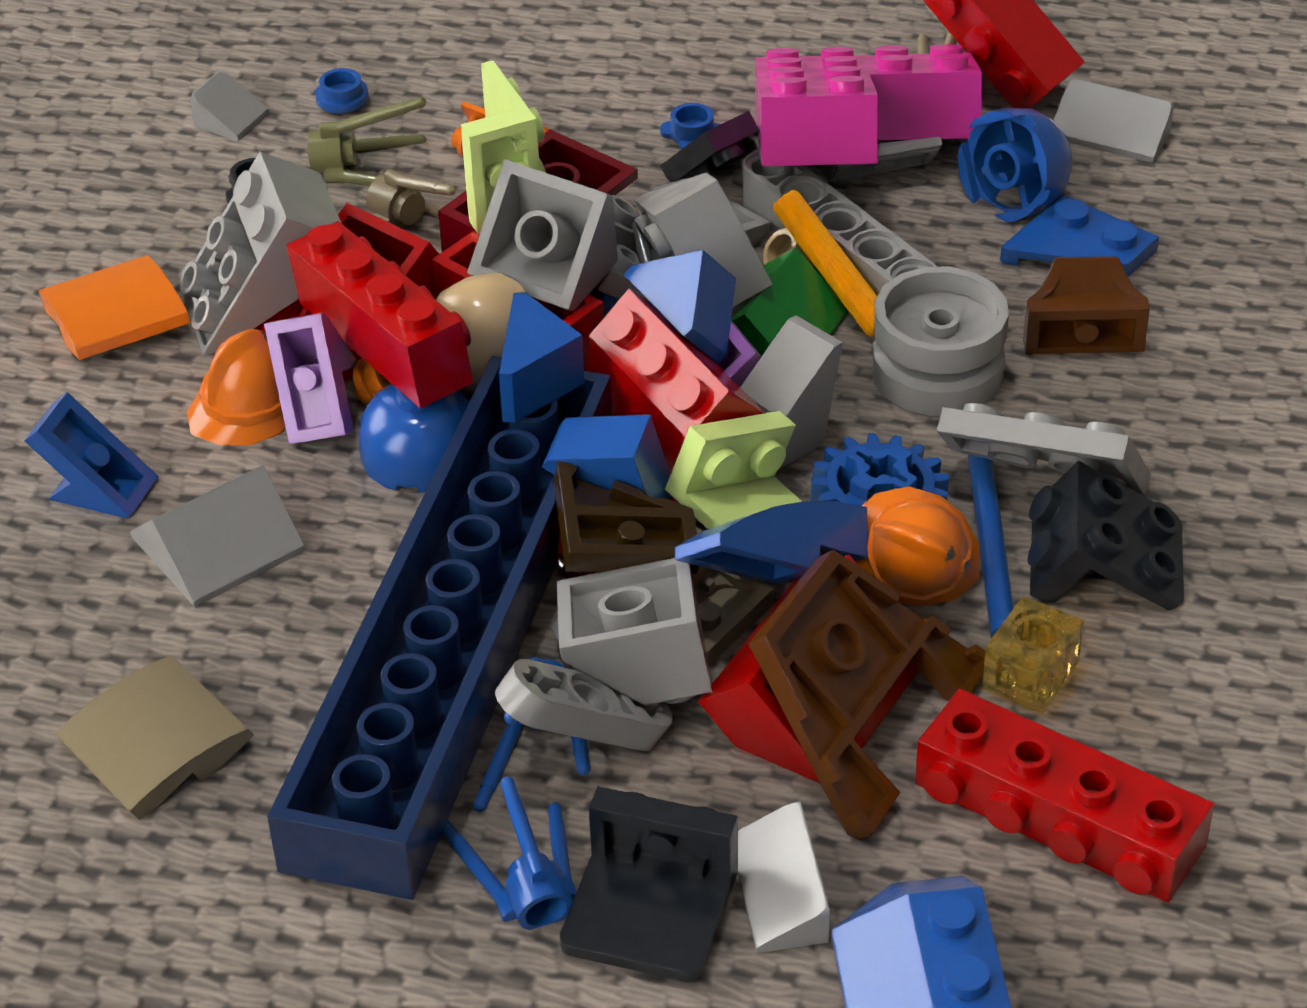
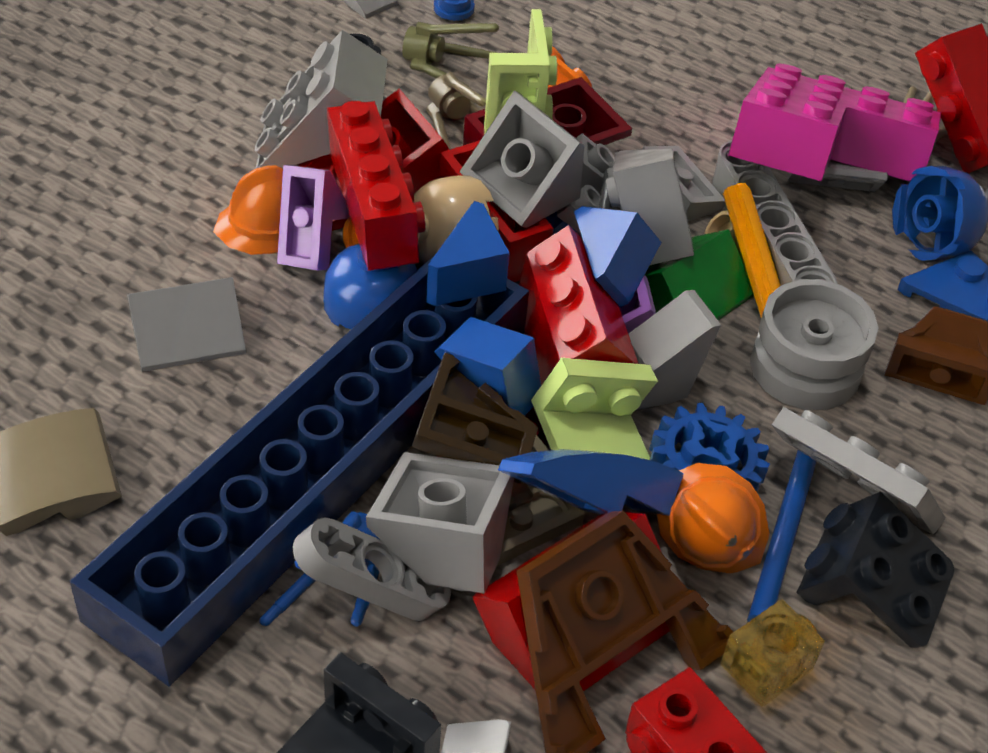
camera: 15 degrees right, 5 degrees up
(95, 464) = (121, 230): blue slope -> none
(114, 307) = (207, 116): orange slope -> none
(536, 888) = (266, 716): blue plant -> none
(688, 123) = (700, 107): blue plate -> none
(713, 149) = (702, 129): black wing -> none

